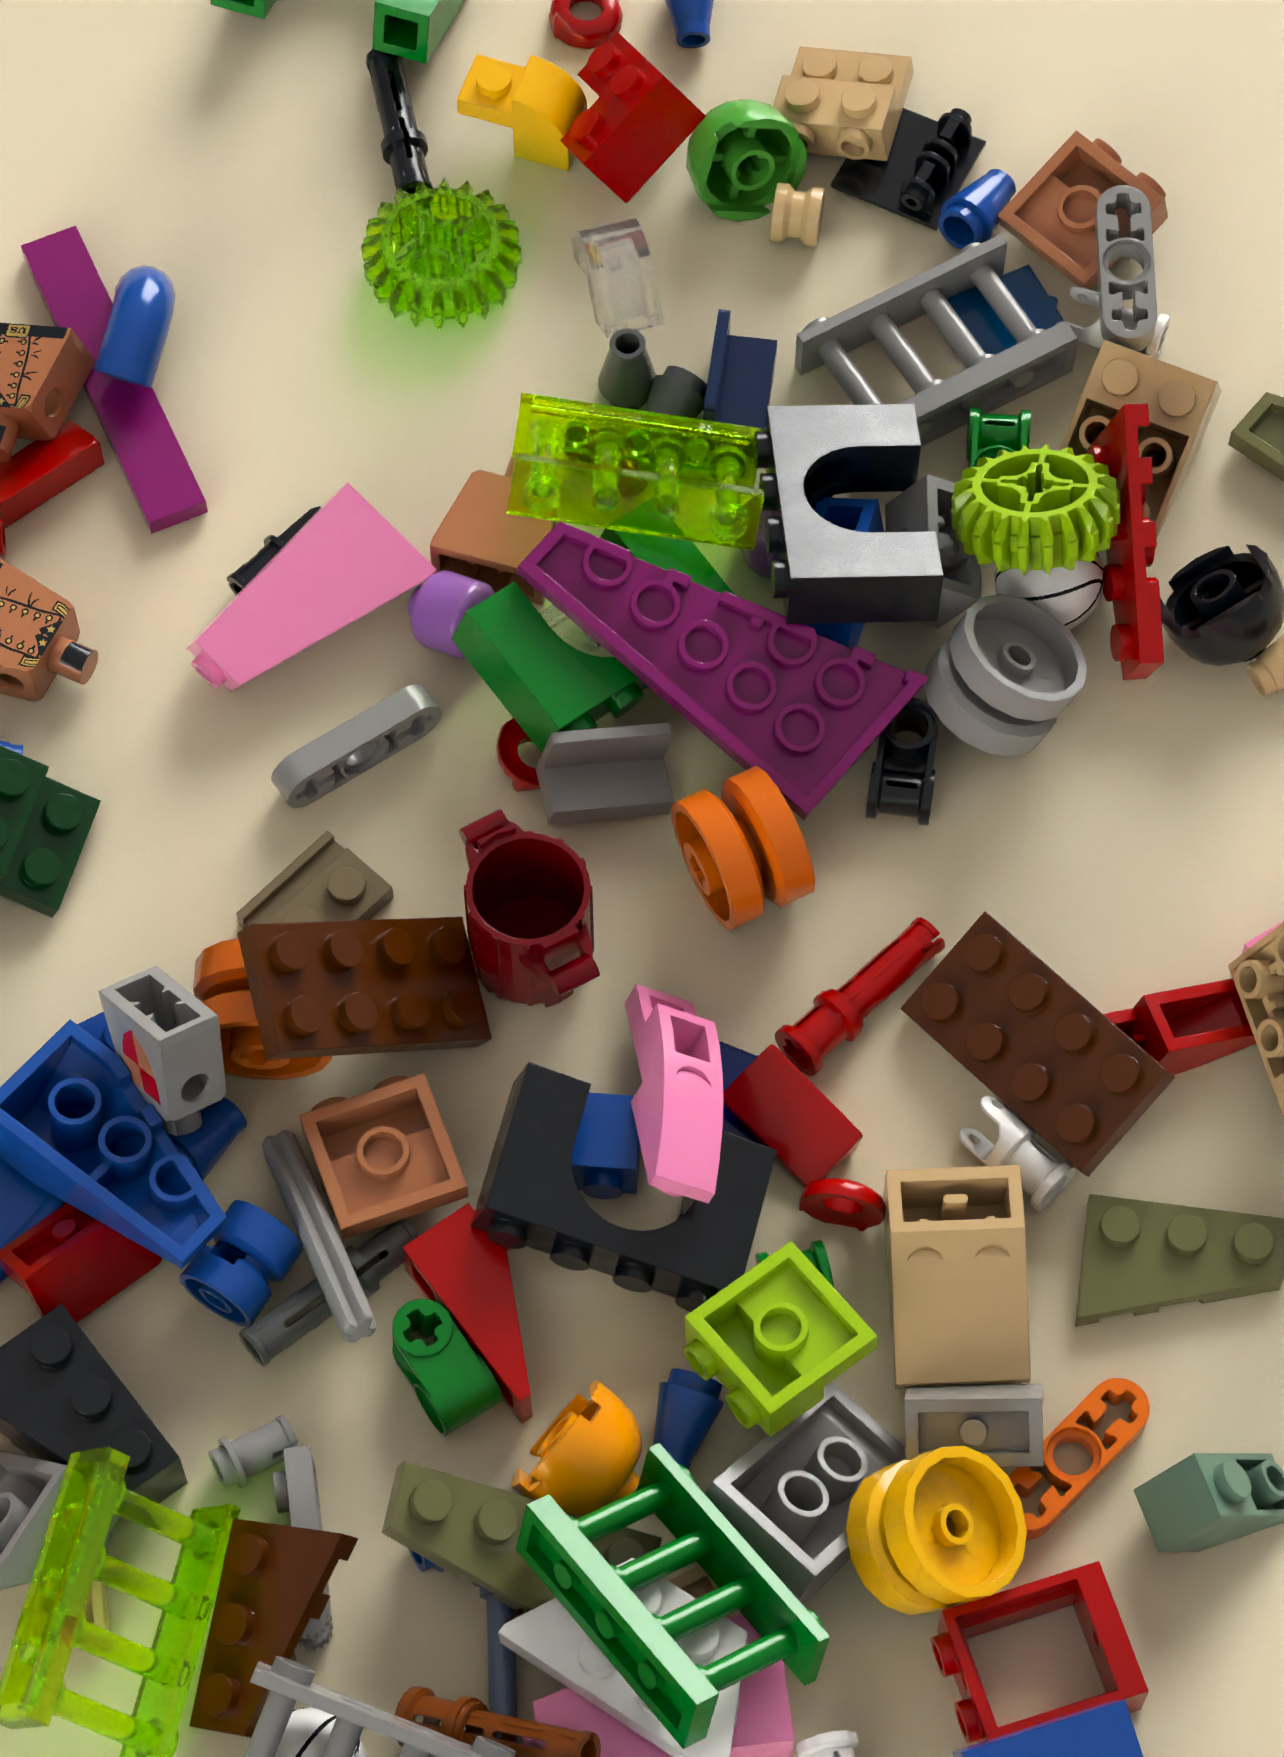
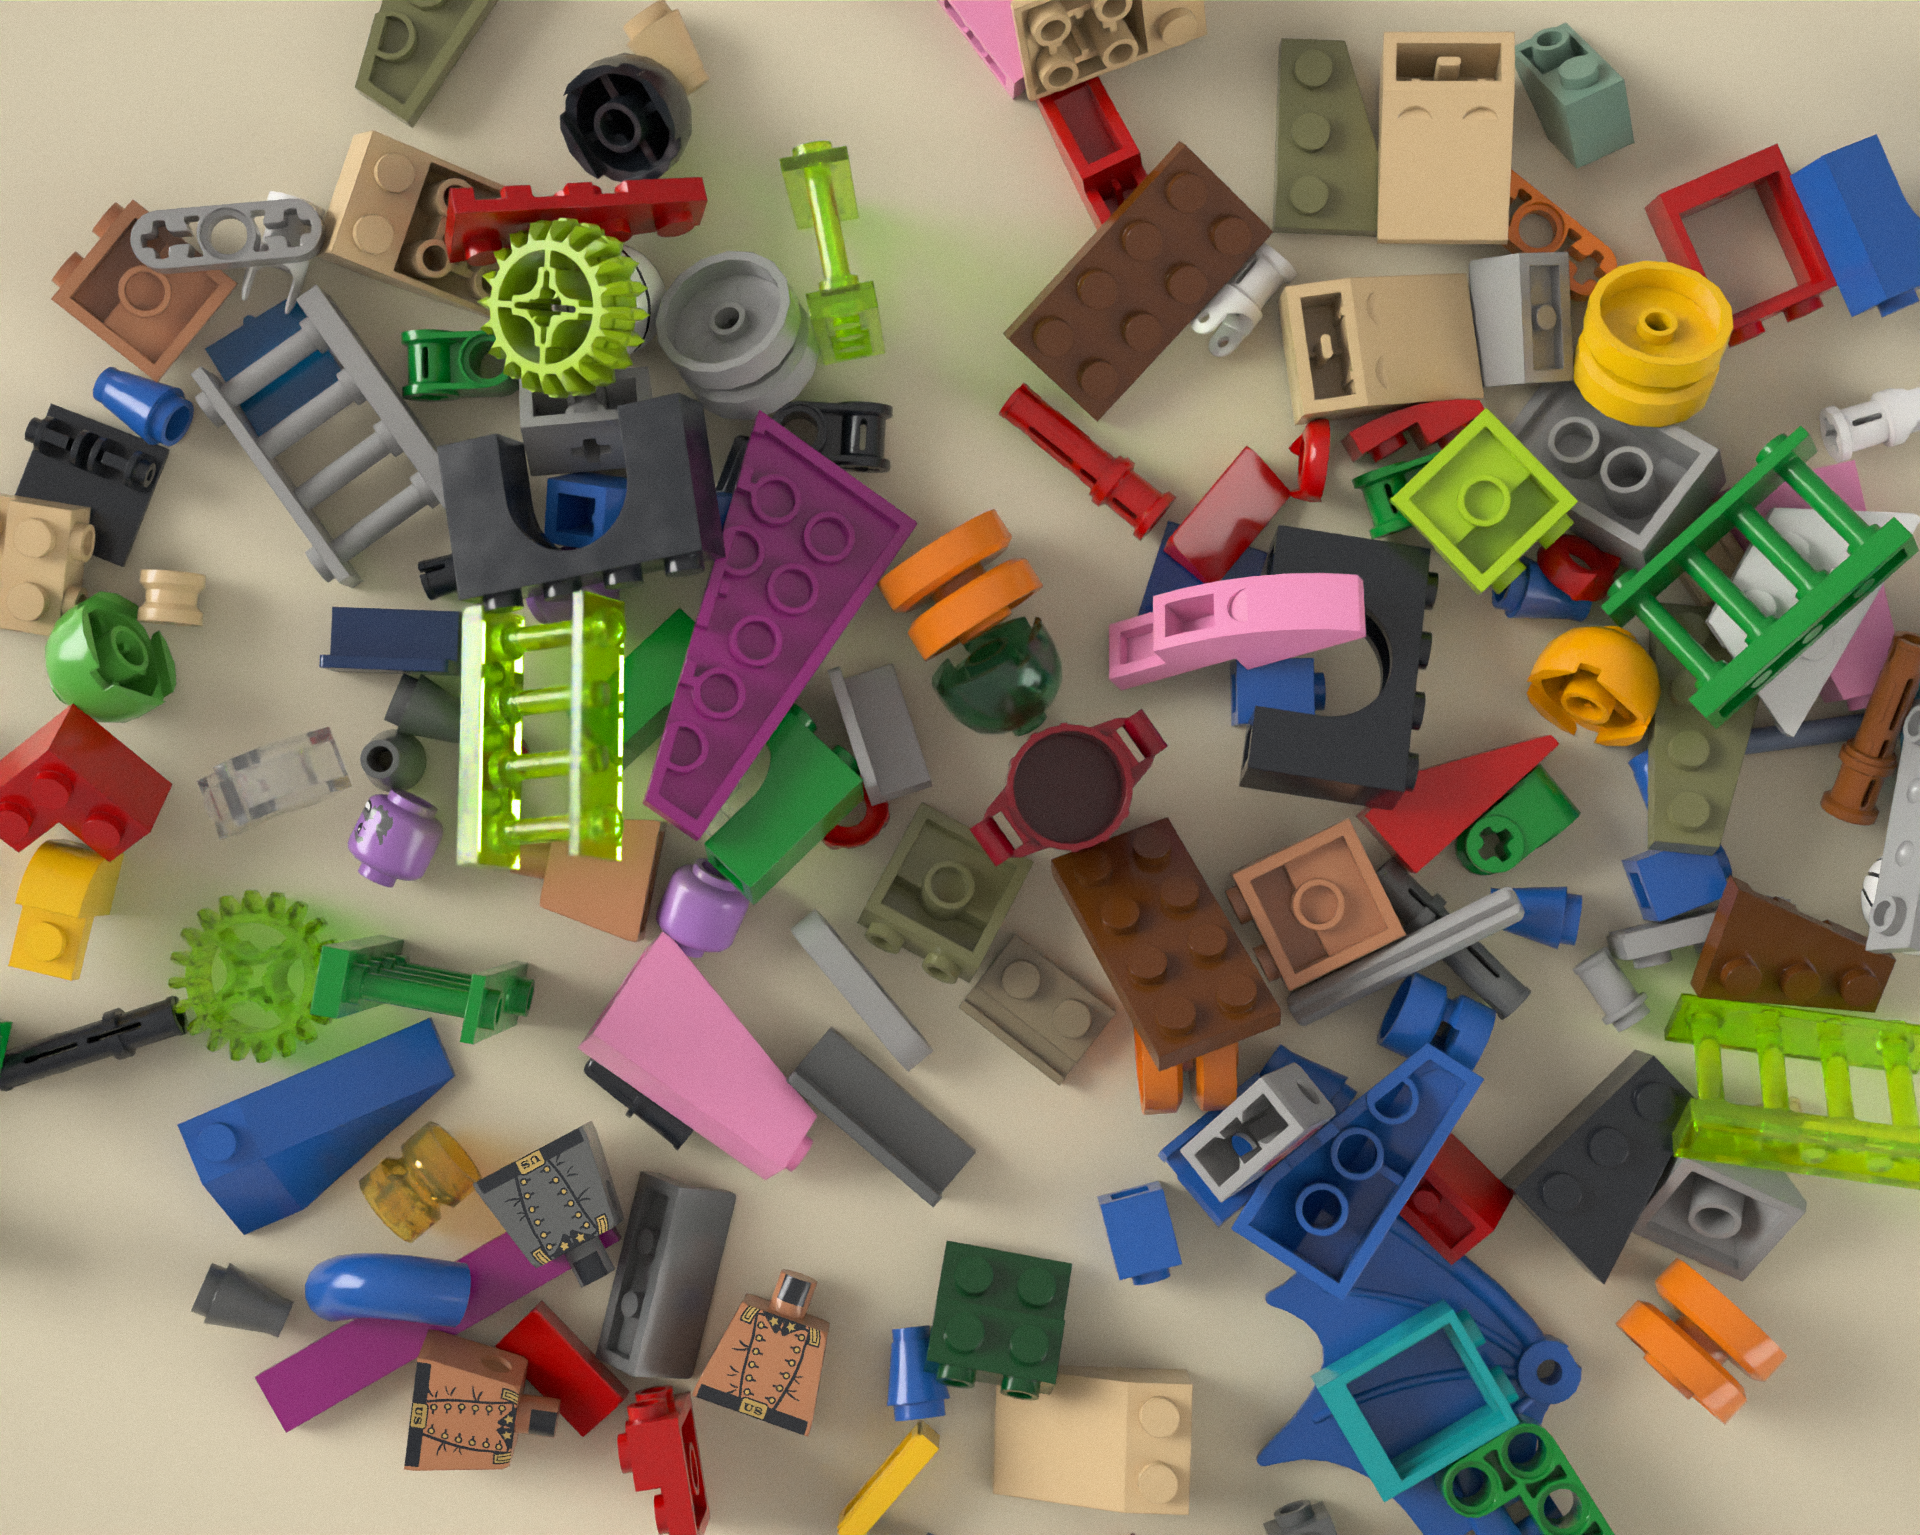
camera: 95 degrees left, 25 degrees up
(74, 967) = (1140, 1233): none -> blue brick
(108, 561) = (665, 1277): none -> dark grey panel
(147, 217) = (240, 1302): none -> dark grey cone
(195, 465) = (558, 1203): none -> dark grey torso
(228, 750) = (881, 1116): none -> dark grey panel
(236, 366) = (413, 1188): none -> clear yellow wheel
(291, 275) = (301, 1134): none -> blue wedge
(343, 1386) = (1549, 915): none -> blue cone
(358, 1509) = (1675, 881): none -> blue brick
(413, 346) = (375, 973): none -> green fence
(421, 814) = (942, 897): none -> olive plate
(555, 364) = (395, 837): none -> medium lavender head
(644, 889) = (1004, 680): none -> clear green cylinder
(692, 1435) = (1571, 577): none -> red piece
(864, 1277) = (1425, 423): none -> red slope
(1016, 724) = (822, 197): none -> clear neon green fence
(1172, 1350) = (1445, 137): none -> tan slope

